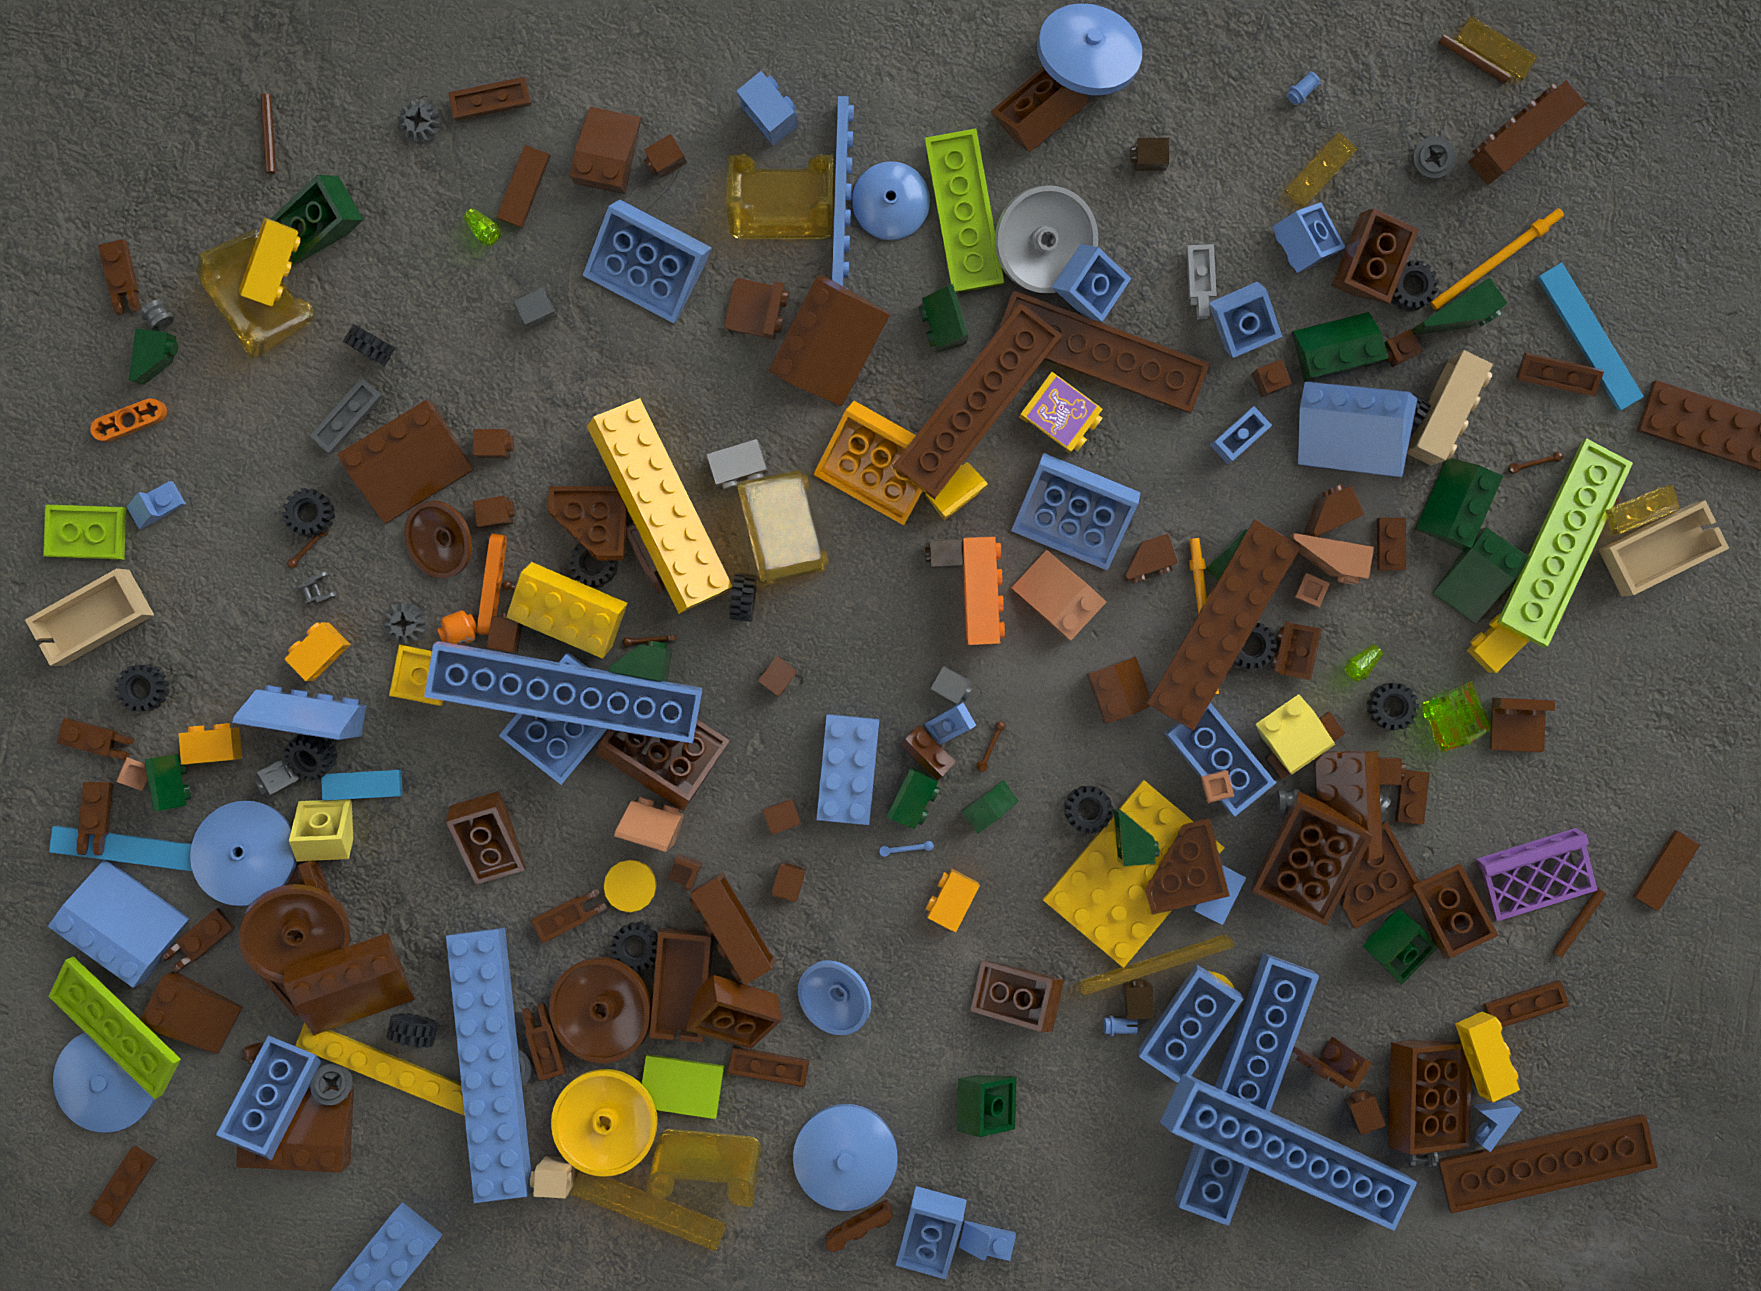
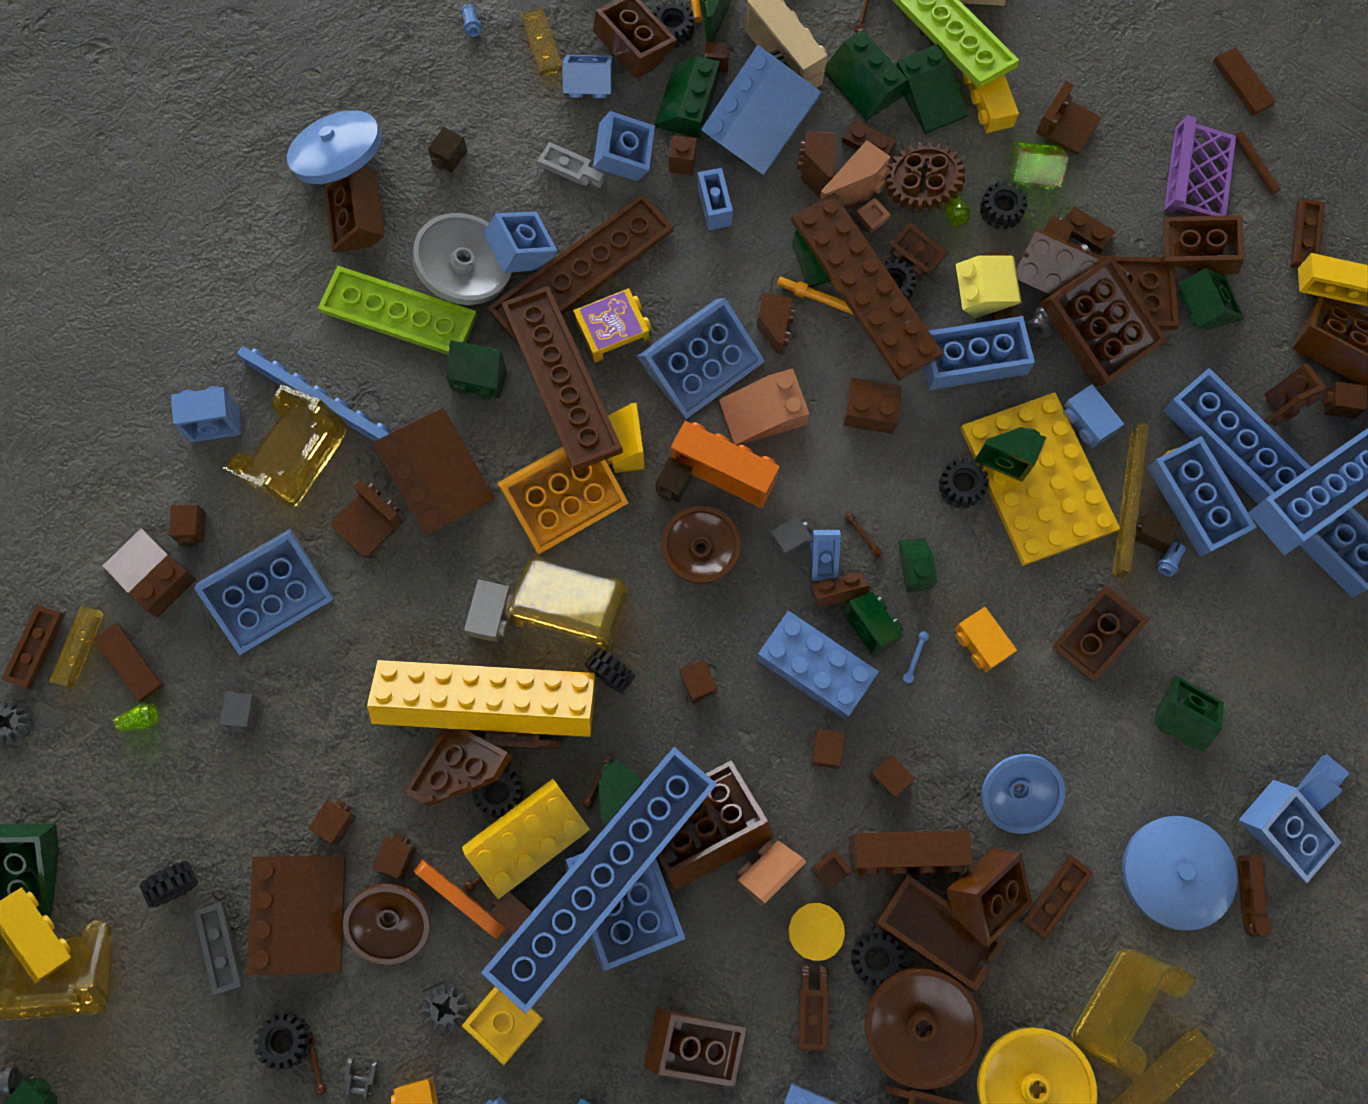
camera: 65 degrees left, 15 degrees down
(458, 628) = (478, 954): orange head -> none
(510, 135) = (76, 647): none -> clear yellow tile
(683, 1085) = (1036, 990): lime tile -> none
(892, 218) = (353, 378): medium blue dish -> none
(903, 592) = (704, 528): none -> reddish brown dish
(1189, 871) = (1066, 421): reddish brown plate -> none
(1217, 786) = (1001, 361): nougat tile -> none
(1387, 639) = (943, 177): none -> reddish brown gear

